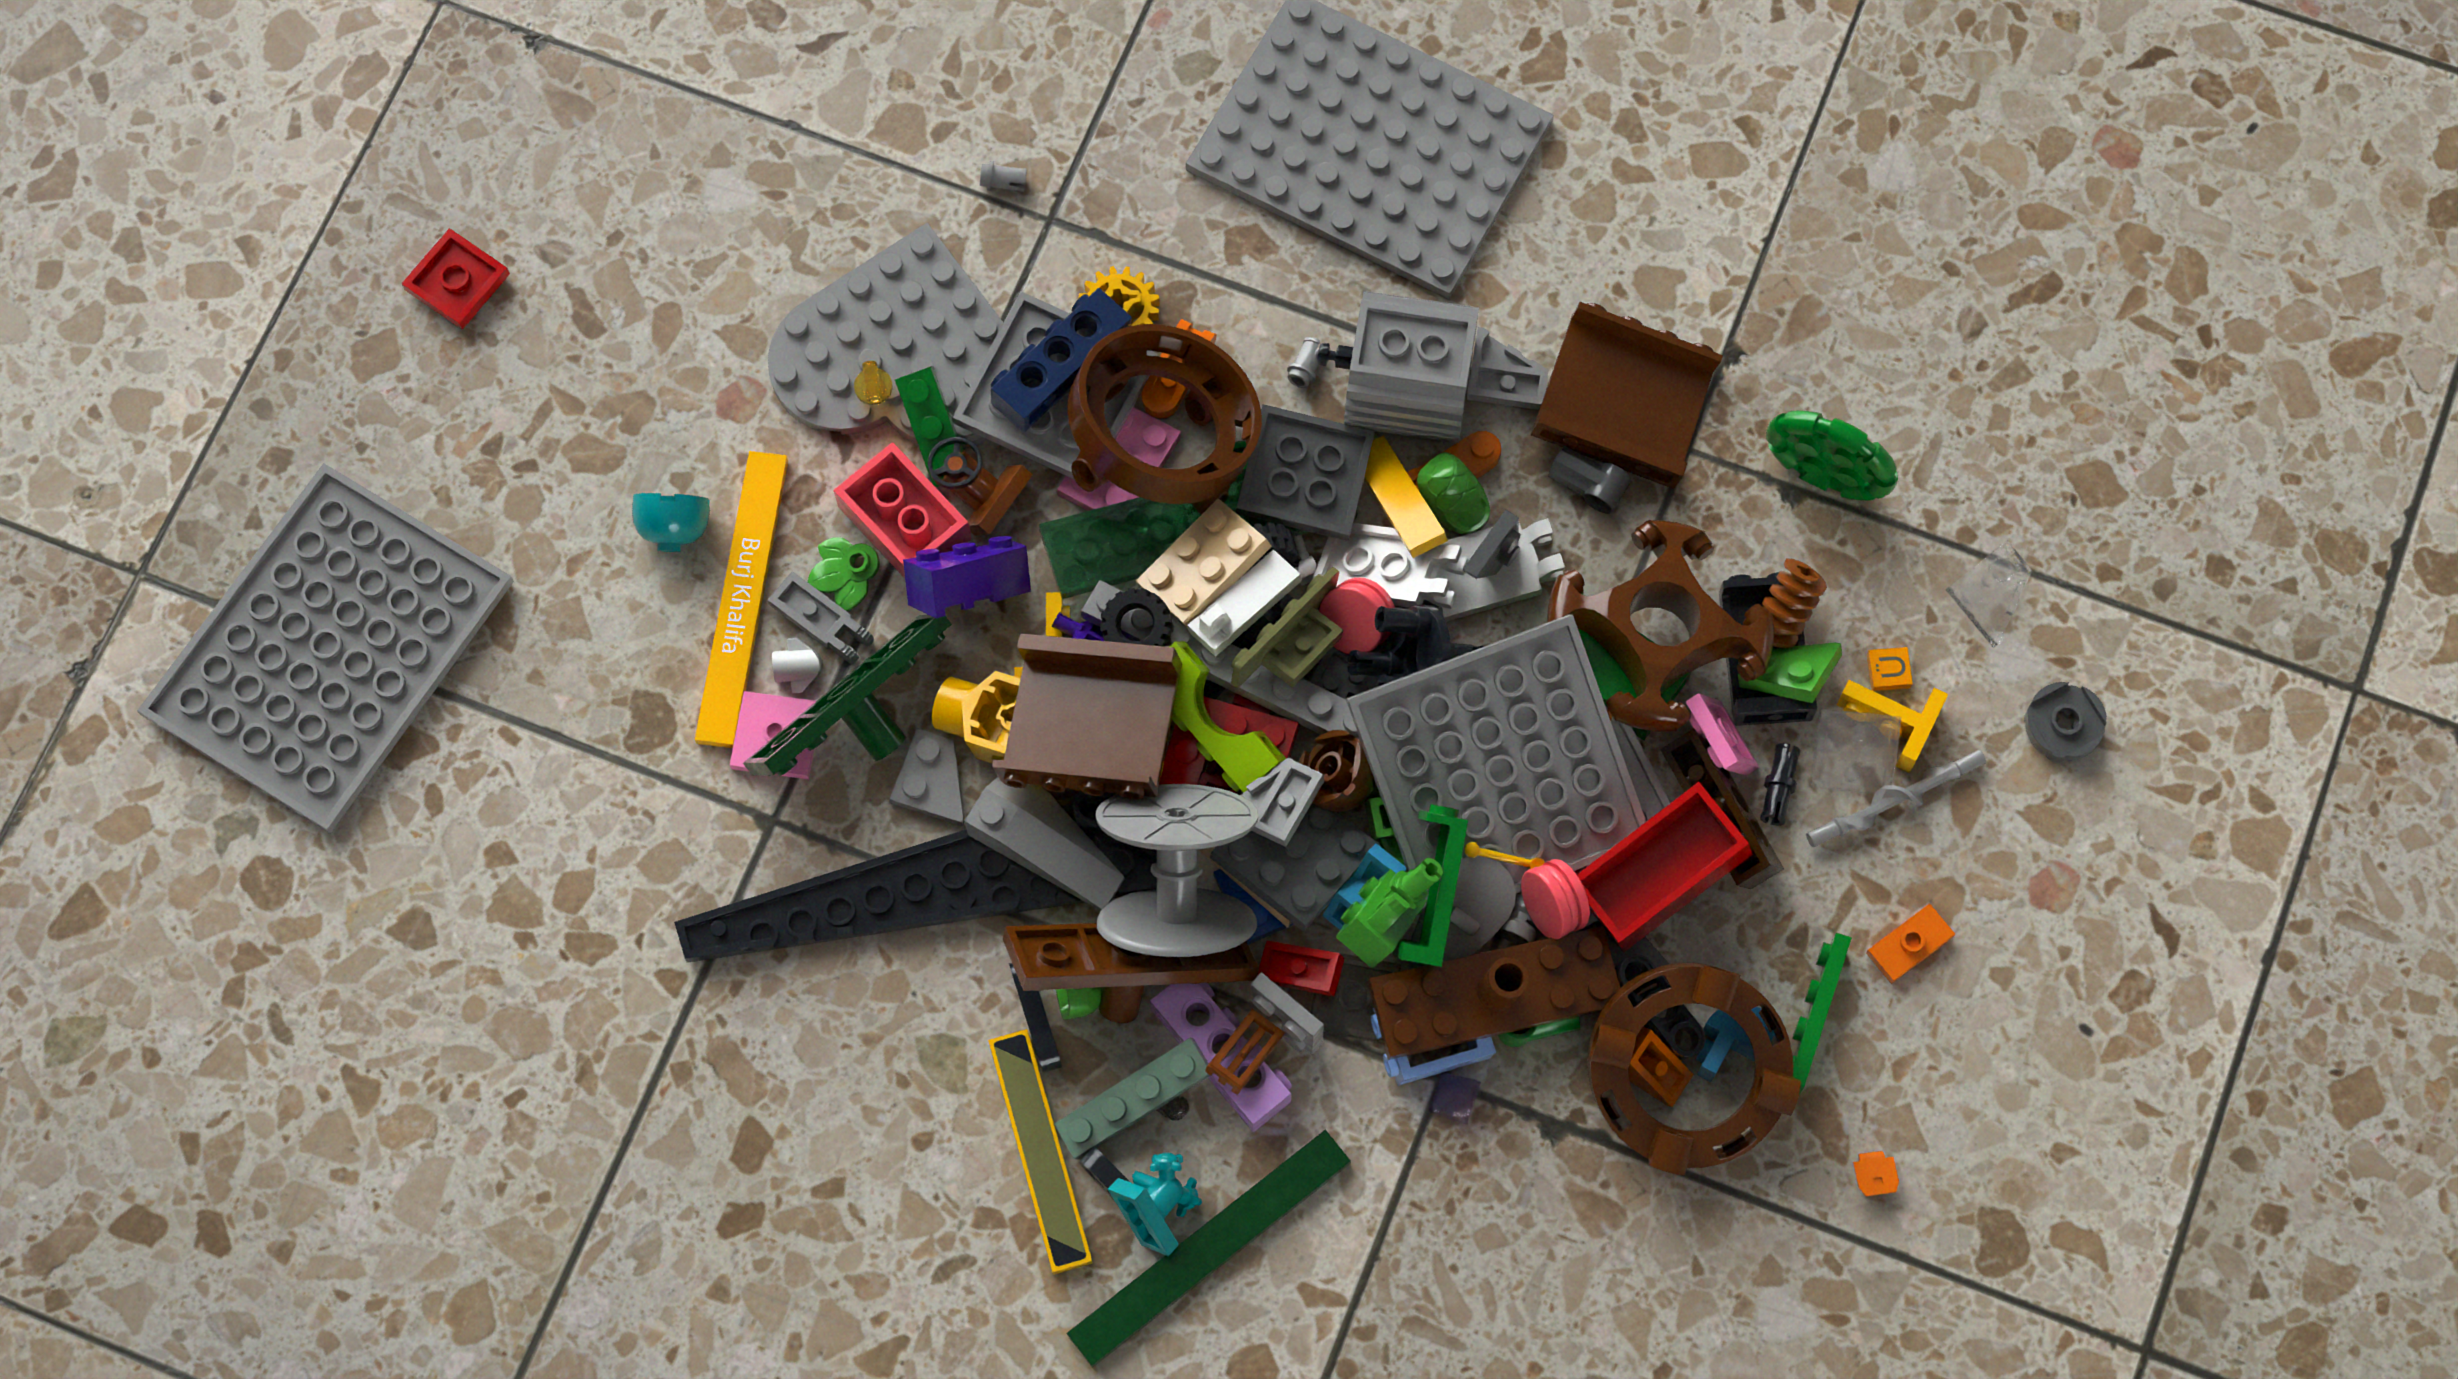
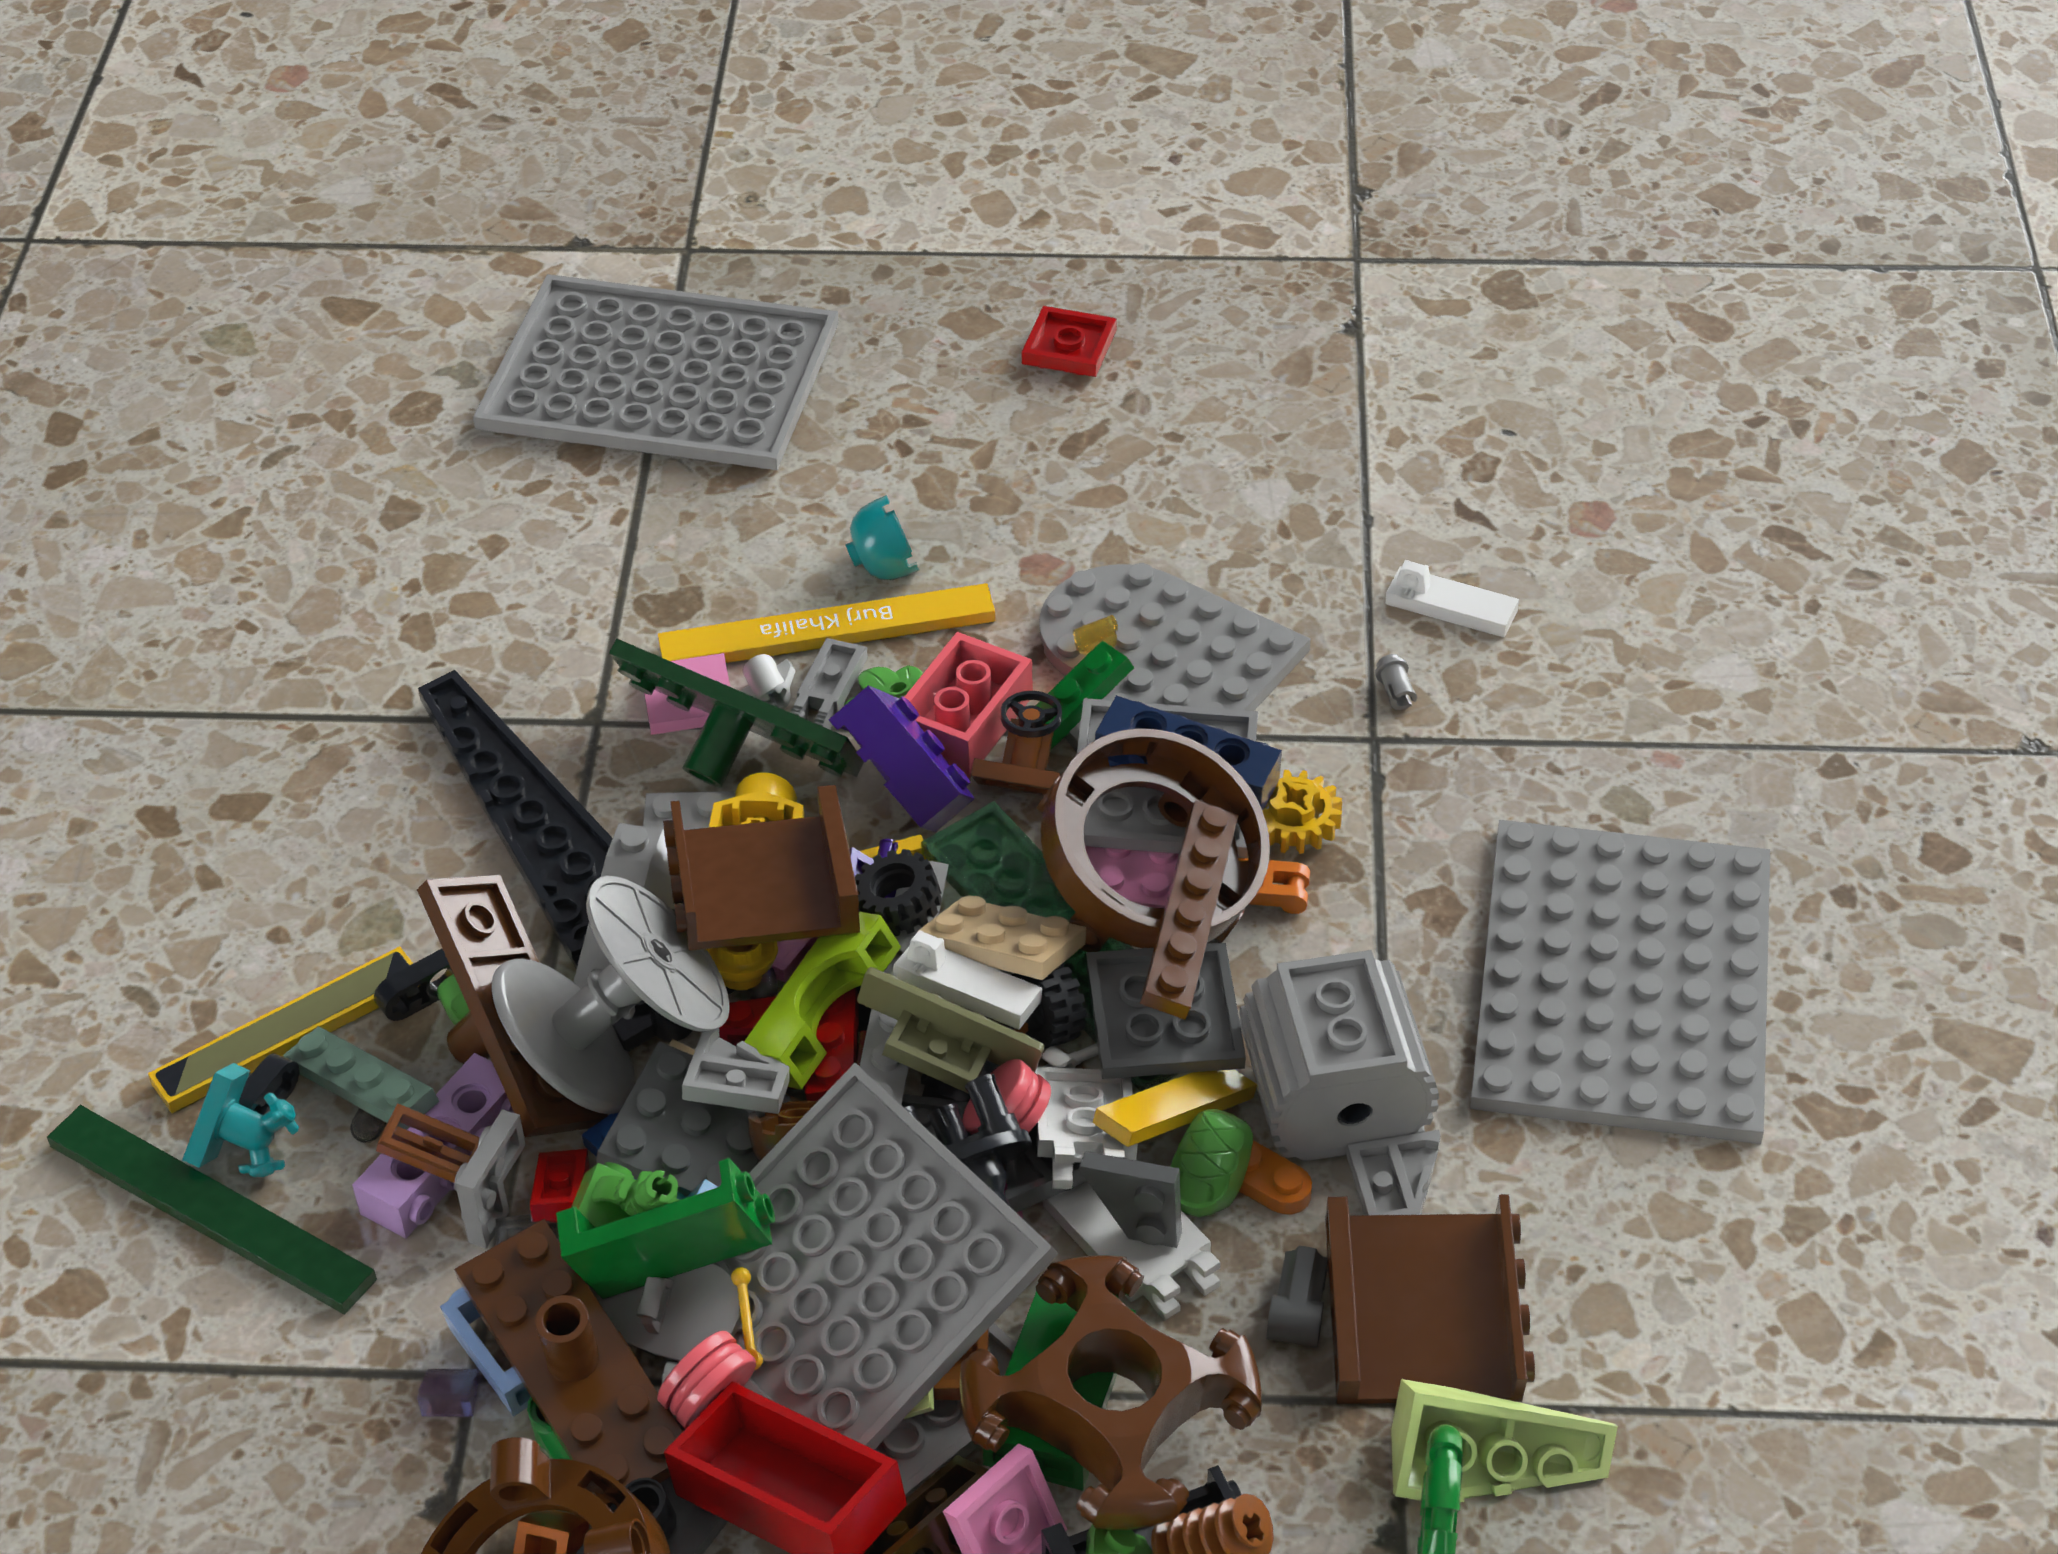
camera: 70 degrees right, 25 degrees down
(923, 100) = (1450, 600): none -> white hinge
(1247, 413) = (1189, 910): none -> reddish brown plate
(1747, 401) = (1503, 1442): none -> yellowish green wedge

